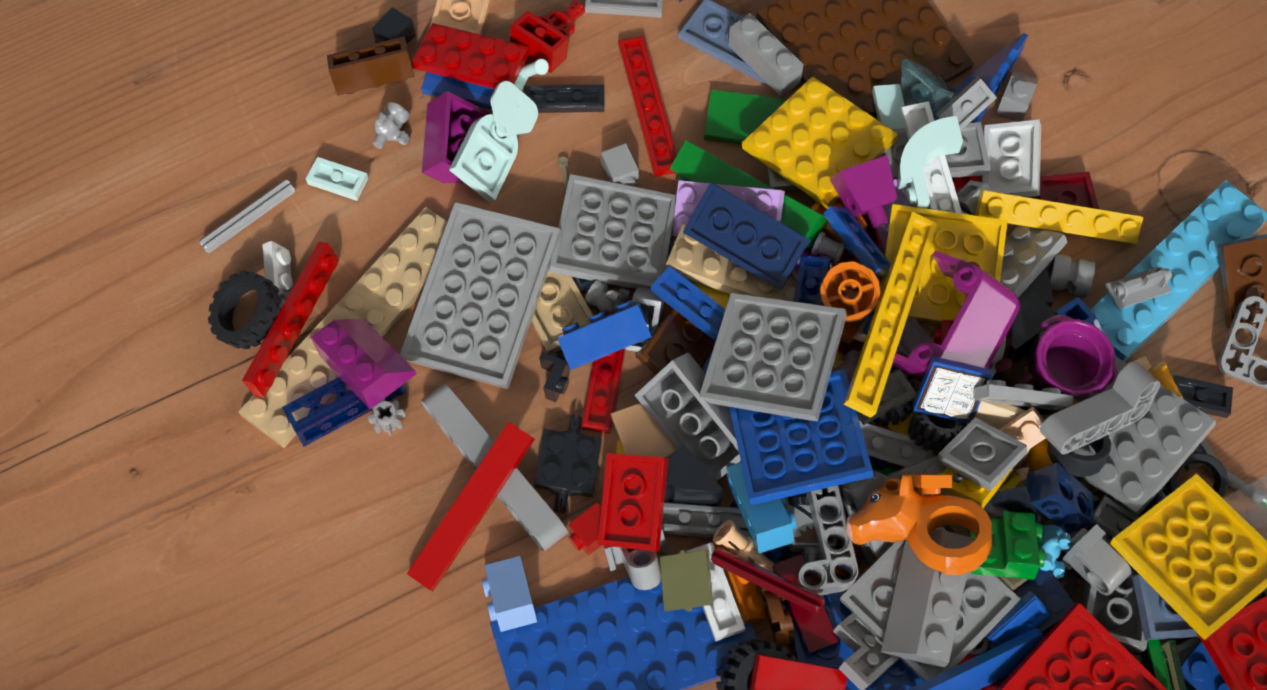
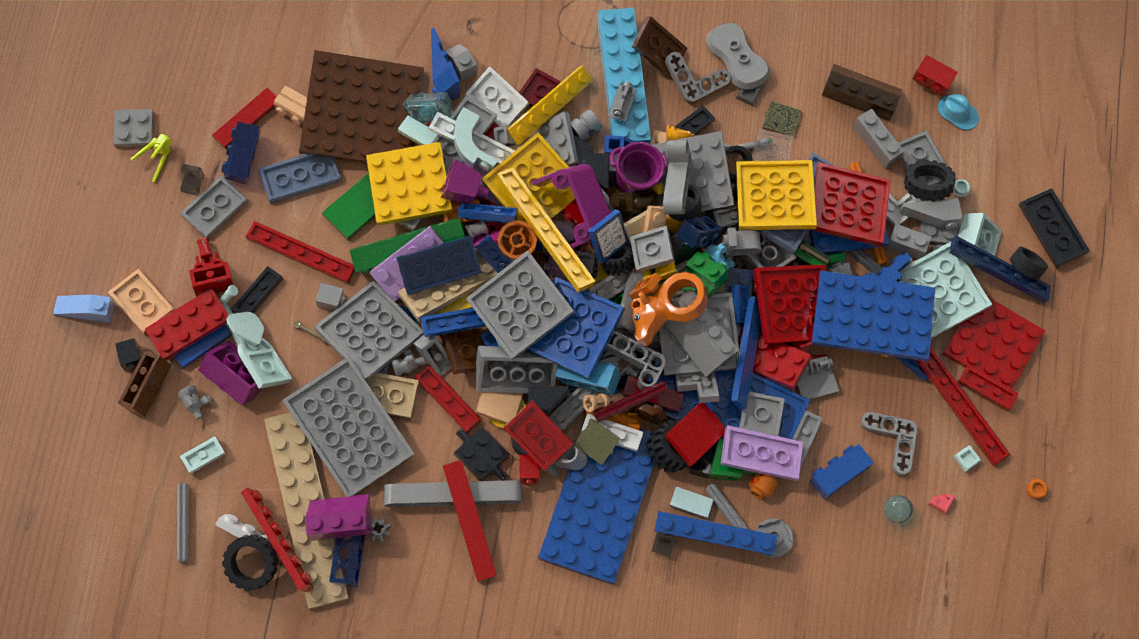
camera: 60 degrees left, 5 degrees up
(509, 594) = (533, 535): light blue brick -> none
(558, 378) = (432, 424): black bracket -> none
(604, 334) = (430, 380): blue brick -> none
(765, 54) = (328, 167): light grey brick -> none
(968, 103) = (455, 95): light grey hinge -> none
(1023, 396) = (629, 216): light grey plate -> none

